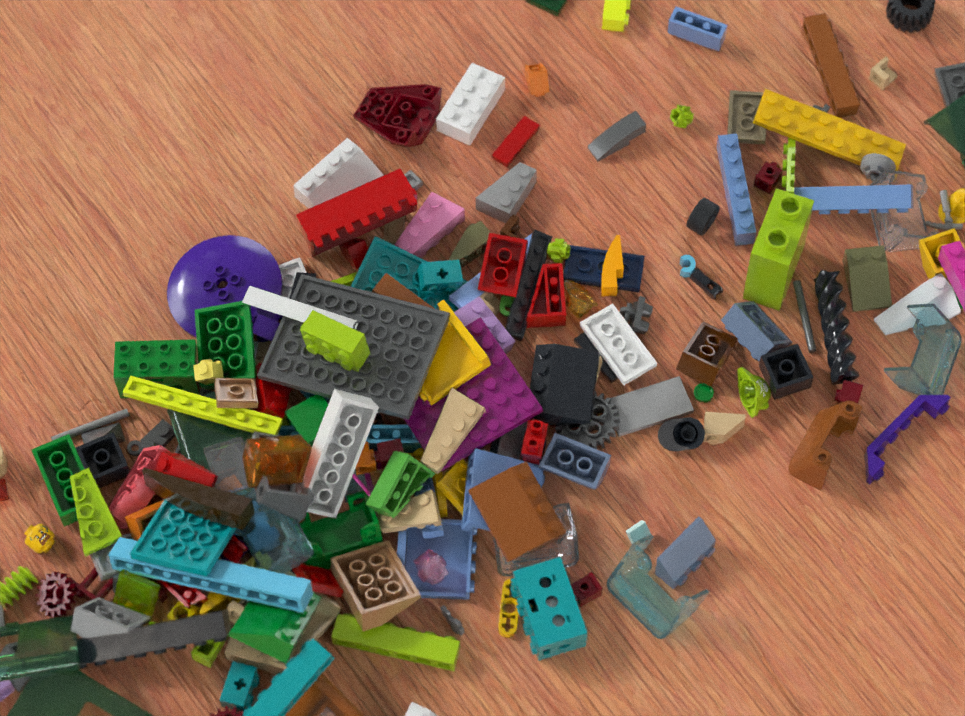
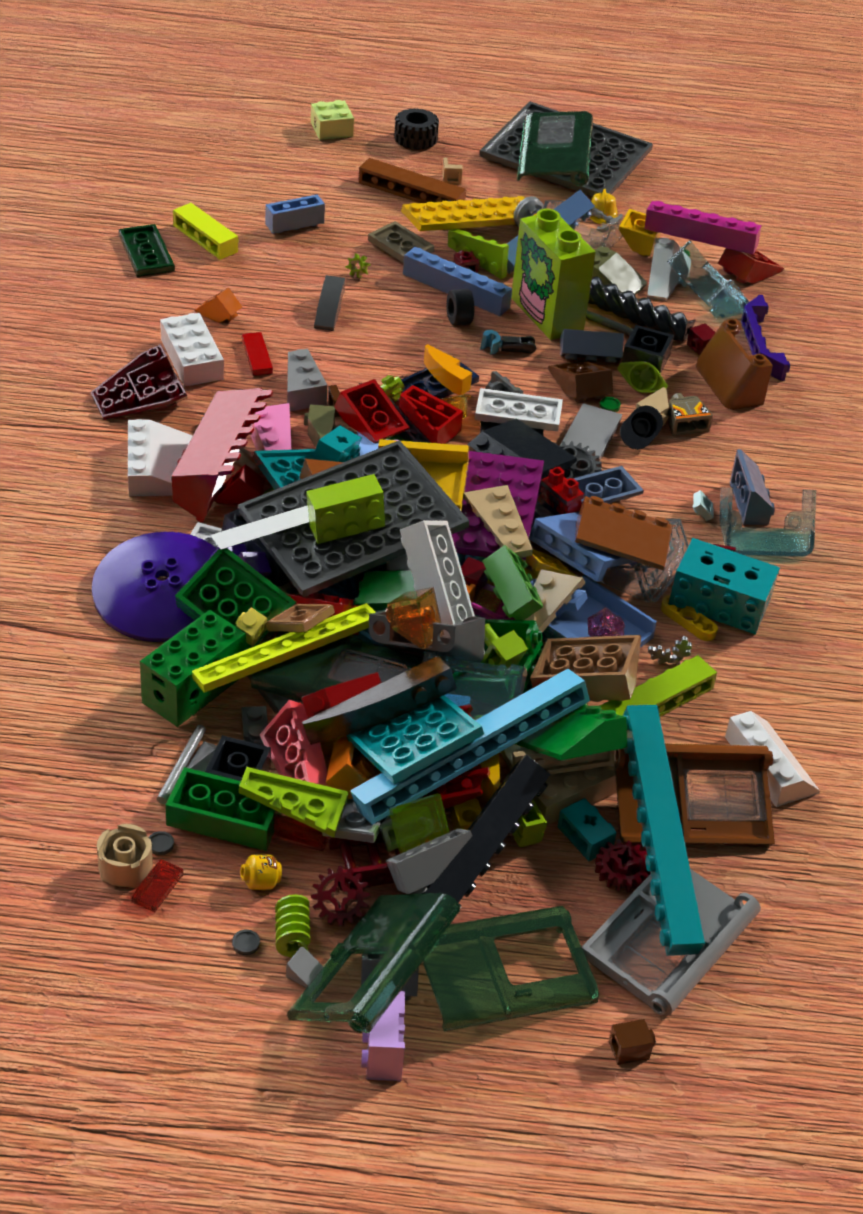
camera: 55 degrees left, 20 degrees down
(21, 468) = (161, 843): none -> dark grey piece
(338, 525) = (503, 650): none -> lime brick
(738, 450) = (688, 415): none -> dark tan torso

